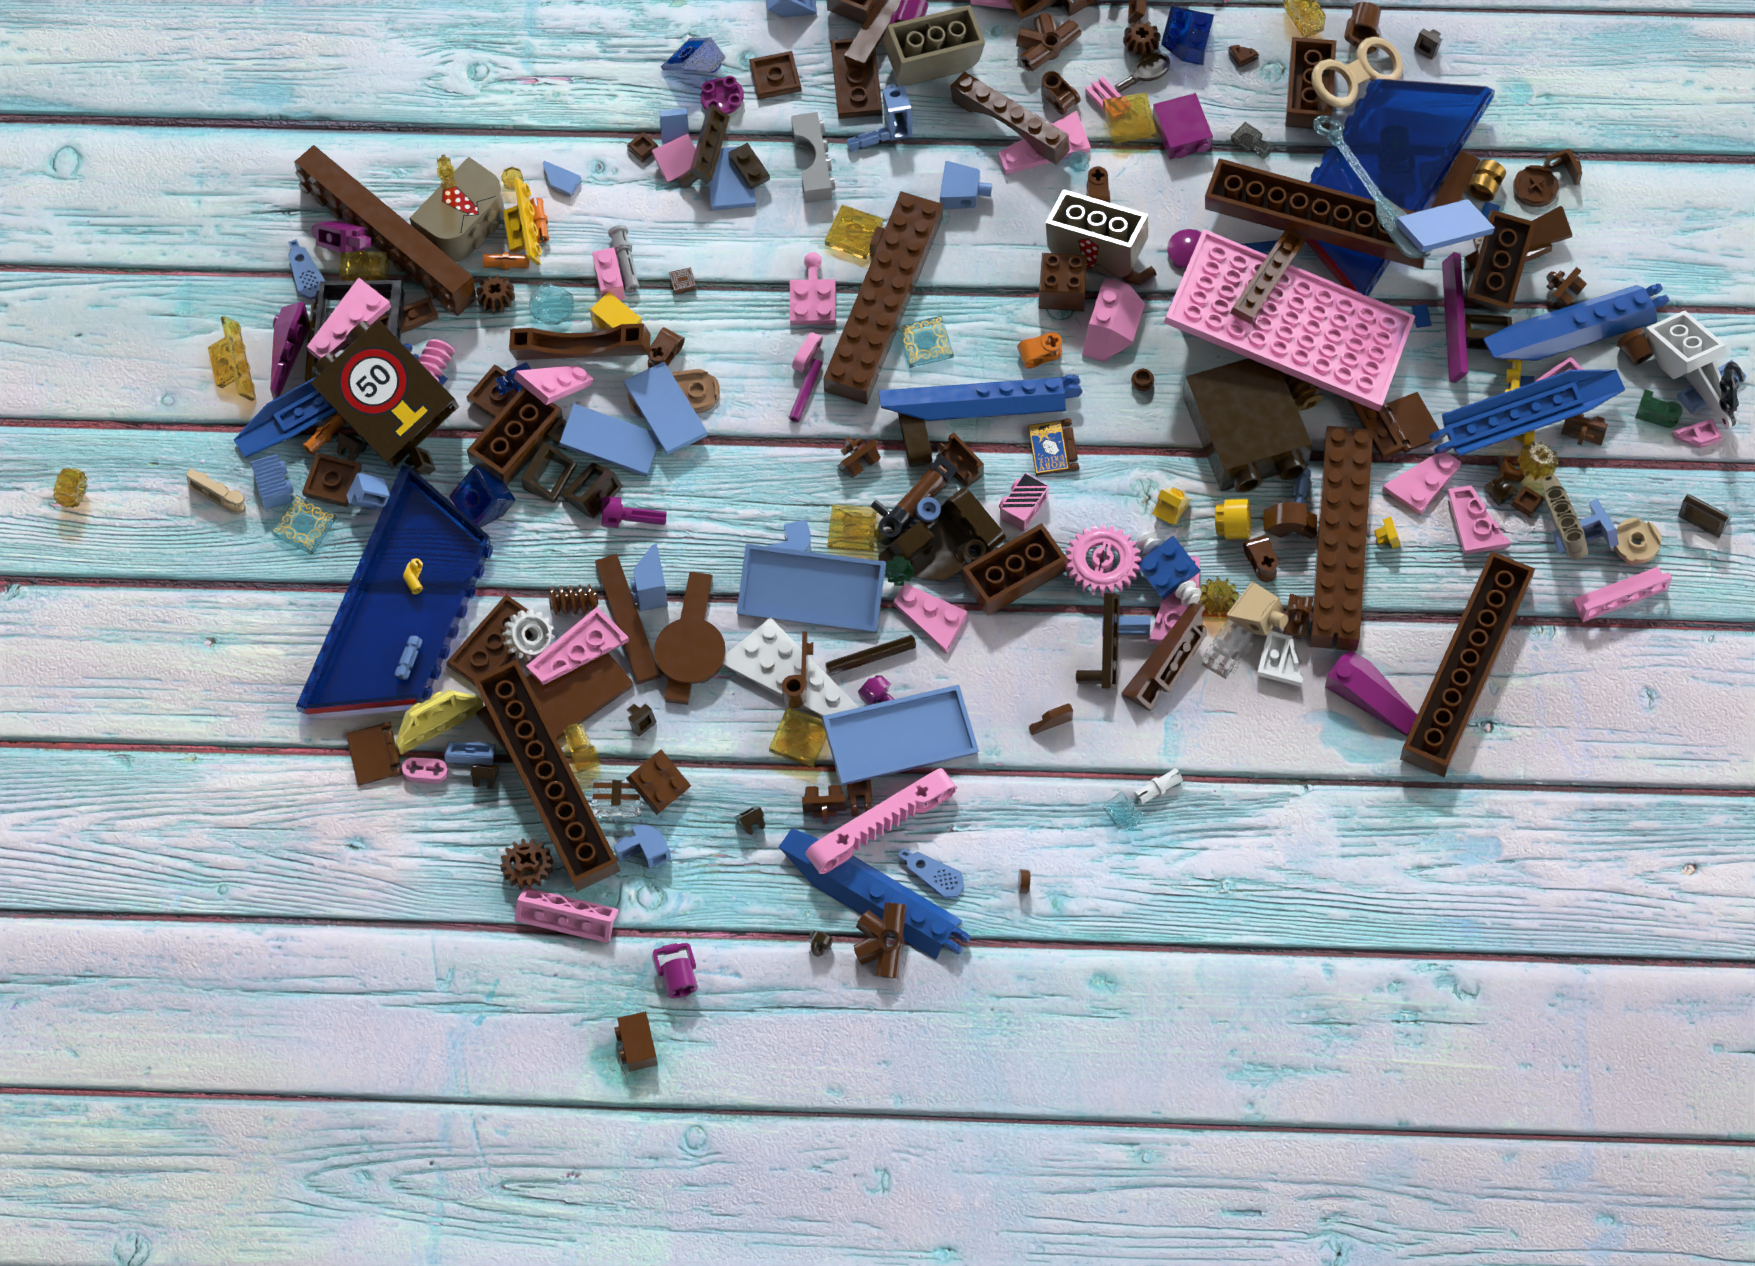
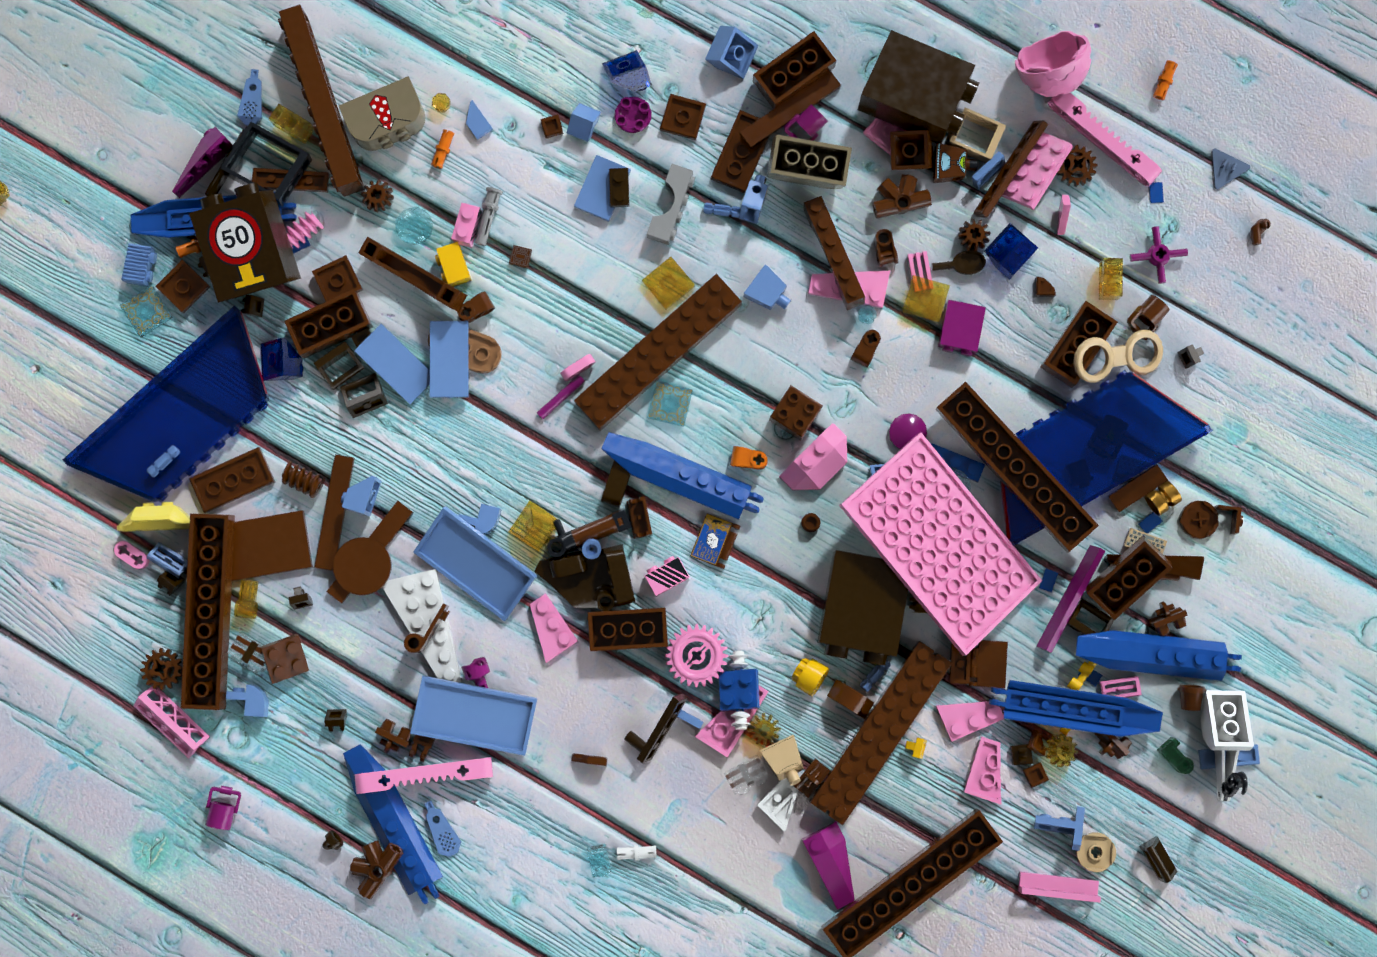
camera: 30 degrees right, 20 degrees up
(215, 491) = (96, 252): tan hinge -> none
(230, 360) = (161, 147): clear yellow bracket -> none
(340, 236) = (285, 90): magenta hinge -> none
(358, 305) = (255, 166): bright pink wing -> none
(368, 492) = (199, 315): medium blue piece -> none
(374, 753) = (102, 521): reddish brown piece -> none
(412, 574) = (199, 395): yellow arm -> none
(445, 171) = (379, 86): clear yellow axle -> none
(505, 261) = (389, 165): orange pin -> none
(508, 382) = (356, 278): clear blue plate -> none
(516, 634) = (254, 482): white gear -> none
(520, 224) = (425, 147): yellow bracket -> none
(554, 382) = (378, 297): bright pink wing -> none
(579, 645) = (288, 519): bright pink wing -> none
(614, 513) = (368, 426): magenta piece -> none
(637, 1041) = (167, 846): reddish brown brick -> none
(675, 157) = (570, 151): bright pink piece -> none
(707, 148) = (596, 156): dark brown piece -> none
(799, 737) = (404, 675): clear yellow plate -> none
(812, 299) = (606, 323): bright pink plate -> none
(868, 452) = (567, 471): reddish brown hips -> none
(870, 655) = (491, 636): dark brown axle -> none
(875, 240) = (680, 300): reddish brown tile -> none
(899, 571) = (544, 585): clear green gear -> none
(1024, 881) = (499, 875): reddish brown tile -> none
(1101, 230) = (840, 390): dark tan brick -> none
(1140, 277) = (855, 435): reddish brown arm -> none
(1168, 659) = (698, 760): reddish brown wedge -> none
(1171, 505) = (771, 639): yellow brick -> none
(1248, 138) = (1005, 364): clear smoke plate -> none
(1262, 557) = (814, 711): reddish brown piece -> none
(1268, 276) = (944, 501): plate -> none
(1385, 210) = (1063, 505): clear light blue piece -> none
(1444, 225) = (1098, 538): tile -> none
(1564, 518) = (1056, 783): dark tan piece -> none
(1699, 434) = (1196, 790): bright pink tile -> none

